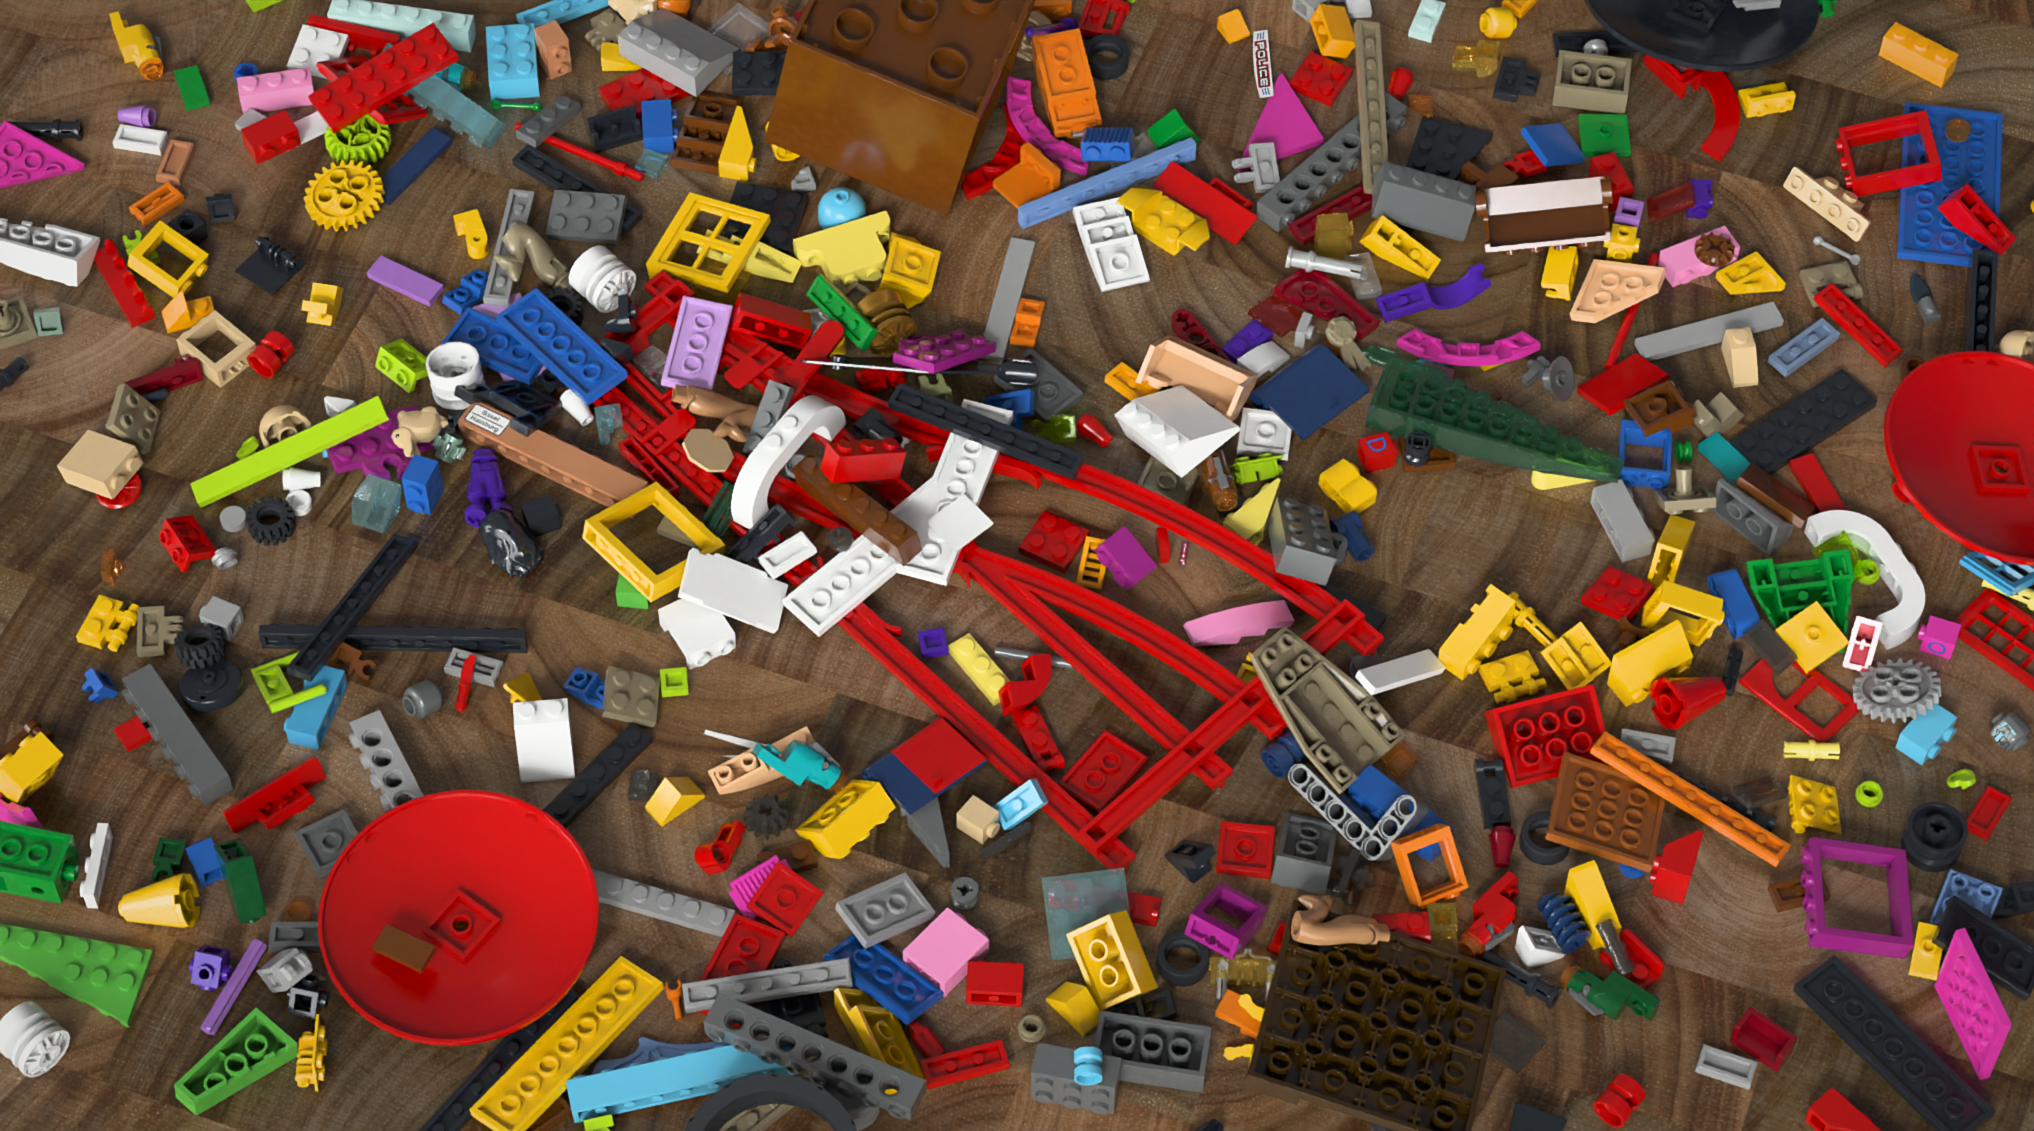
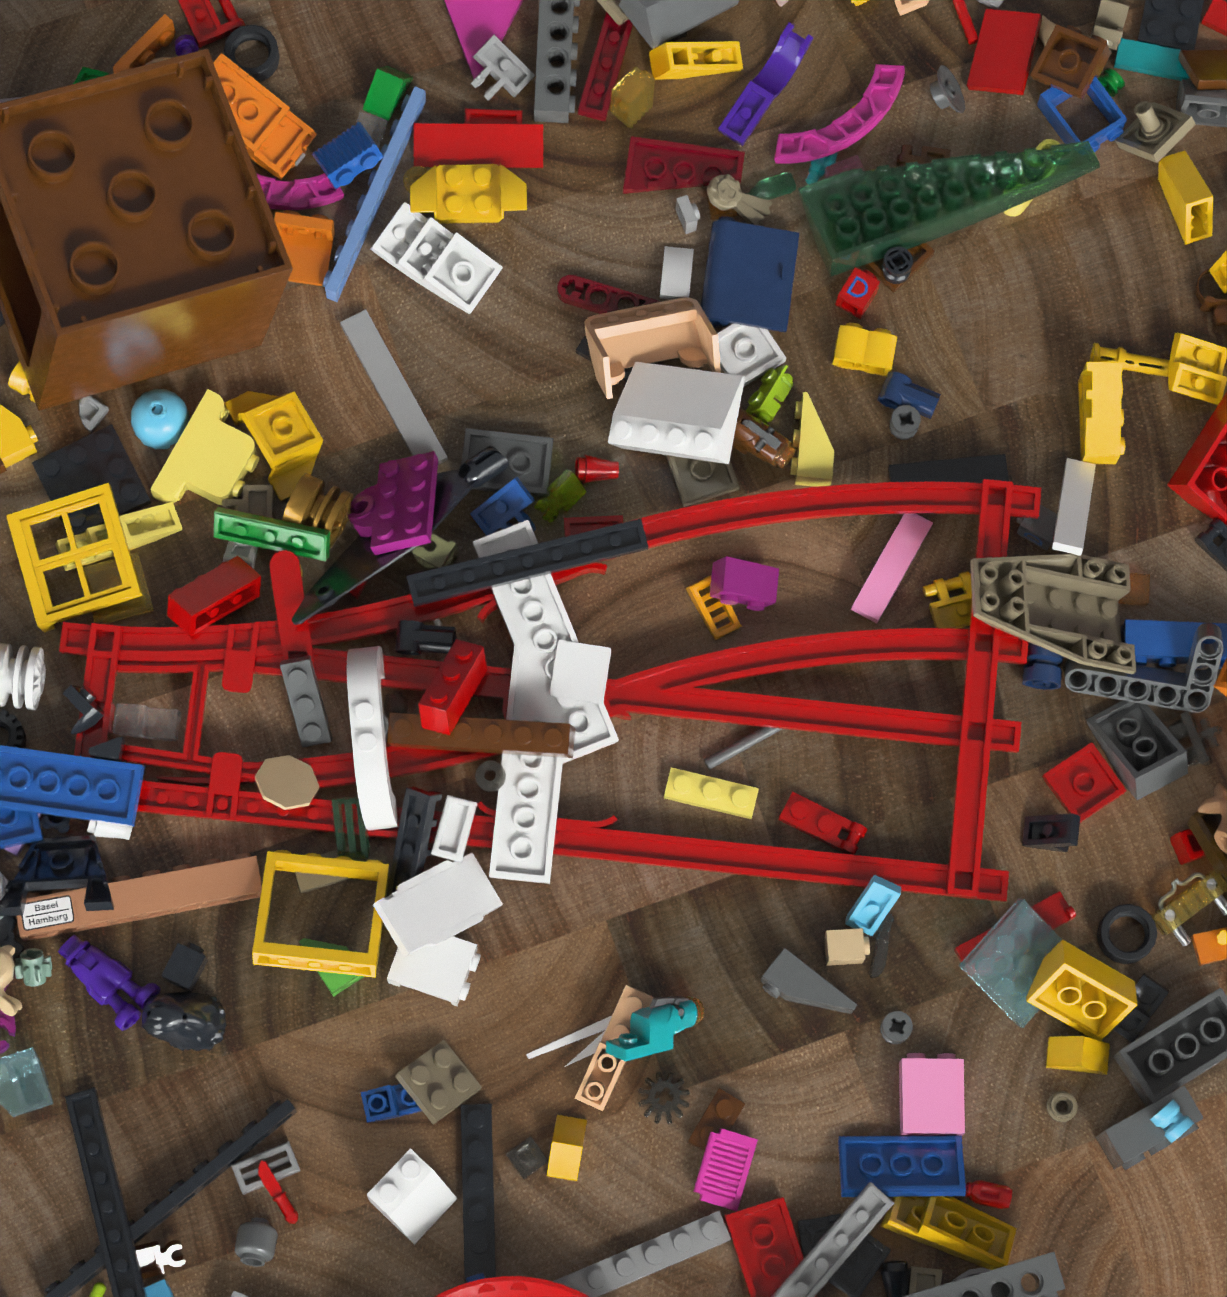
camera: 45 degrees left, 20 degrees up
(422, 484) = (52, 1031): blue brick -> none
(522, 688) = (343, 1158): yellow piece -> none
(607, 419) = (158, 820): clear light blue bracket -> none
(646, 465) = (235, 836): red piece -> none
(674, 682) = (460, 1033): lime plate -> none
(697, 343) = (173, 679): lavender tile -> none
(708, 403) = (242, 728): medium nougat piece -> none
(717, 855) = (657, 1167): red plate -> none
(785, 899) = (756, 1166): red plate -> none
(847, 818) = (732, 1041): yellow slope -> none
(885, 910) = (848, 1103): light grey plate -> none
(925, 765) = (758, 937): red door -> none
(932, 643) = (649, 804): dark purple plate -> none
(964, 1064) = (1039, 1188): red plate -> none
(994, 983) = (998, 1091): red brick -> none
(1020, 694) = (778, 792): red brick -> none
(1027, 323) = (434, 401): orange slope -> none
(1054, 541) = (658, 611): red plate -> none
(1103, 772) = (902, 809): red tile -> none
(1124, 381) = (584, 395): light orange plate -> none
(1162, 545) = (759, 540): red tile -> none
(1184, 554) = (780, 534): clear pink leg -> none
(1228, 940) = (1138, 896): magenta window -> none
(1247, 339) = (645, 266): dark purple plate -> none
(1276, 315) = (647, 215): clear red piece -> none
(1301, 540) = (889, 447): dark grey brick -> none
(1311, 261) = (637, 138): light grey pin -> none
(1368, 284) = (687, 113): clear plate -> none
(1510, 671) = (1148, 424): yellow plate -> none
(1536, 369) = (920, 92): dark grey piece -> none
(1617, 594) = (1176, 274): red plate -> none
(1622, 520) = (1120, 196): light grey brick -> none

